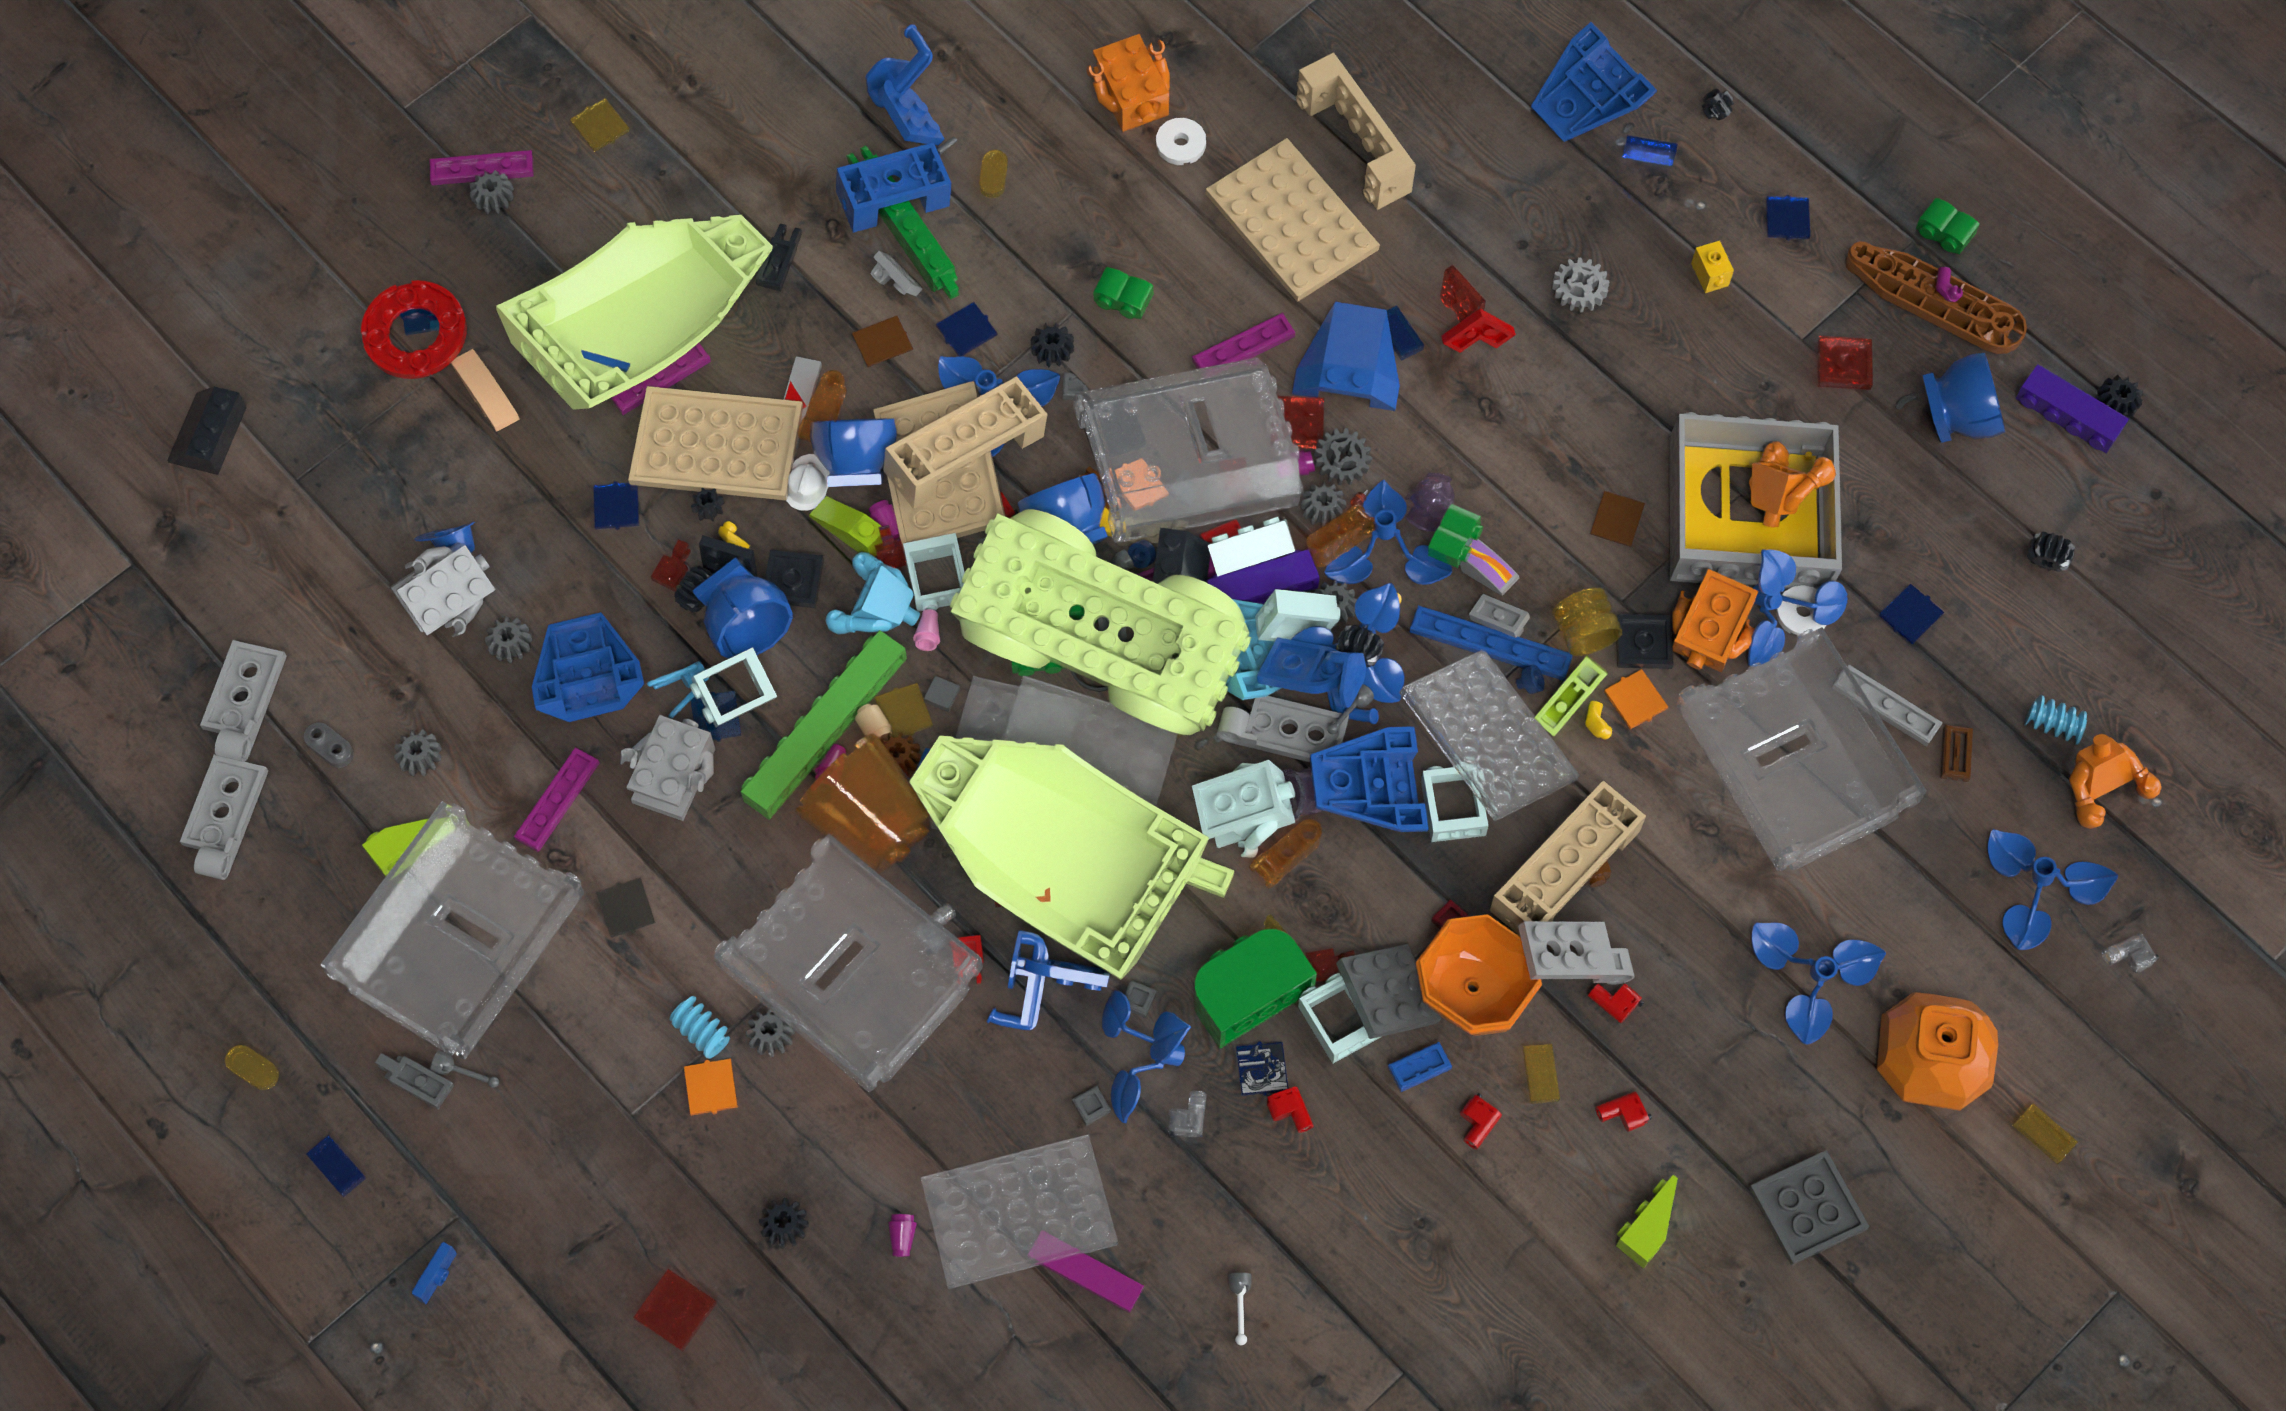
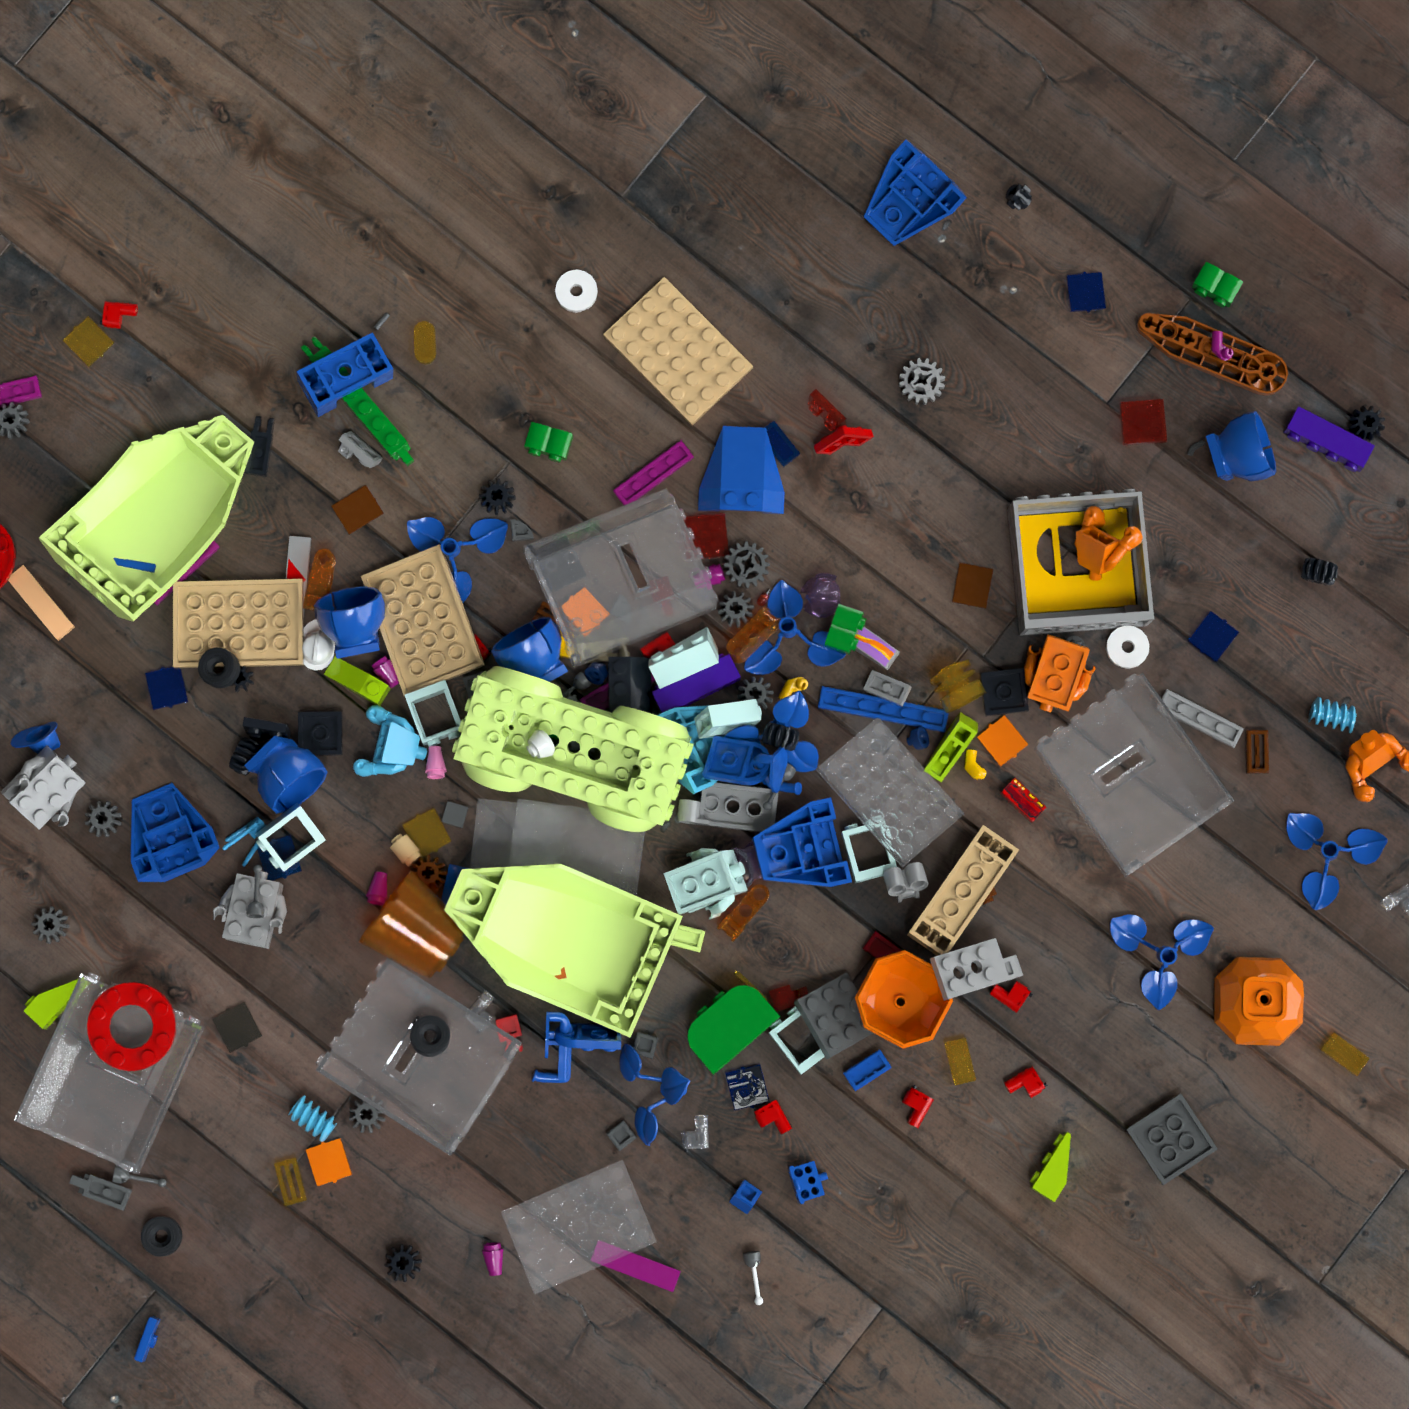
camera: 10 degrees left, 15 degrees up
(336, 1166) = (55, 1265): clear blue tile -> none
(471, 1132) = (149, 1232): none -> black tyre
(510, 913) = (163, 1026): none -> red plate
(556, 799) = (167, 946): magenta tile -> none
(636, 96) = (113, 313): none -> red piece
(655, 1080) = (282, 1185): none -> clear yellow tile
(672, 570) = (221, 739): clear red plate -> none
(674, 472) = (210, 659): none -> black tyre
(674, 755) = (255, 908): none -> dark grey hinge
(675, 1310) = (333, 1340): clear red plate -> none
(727, 532) = (264, 706): yellow arm -> none
(823, 725) = (366, 855): bright green brick -> none
(866, 929) = (425, 1024): none -> black tyre
(889, 88) = (338, 289): blue plate -> none
(890, 550) = (394, 701): clear red plate -> none
(961, 437) = (440, 600): tan plate -> none
(966, 329) = (424, 489): clear blue piece -> none
(1061, 608) = (540, 745): none -> white cone
(1131, 81) = (526, 246): orange torso -> none
(1241, 1205) = (745, 1197): none -> blue slope
(1317, 1199) = (800, 1182): none -> blue piece
(1328, 84) = (693, 223): tan plate -> none
(1497, 841) = (905, 882): none -> light grey piece
(1650, 150) = (966, 247): clear blue tile -> none
(1654, 771) = (1023, 800): none -> slope
(1712, 266) = (1028, 358): yellow head -> none
(1776, 572) = (1099, 638): blue plant -> none

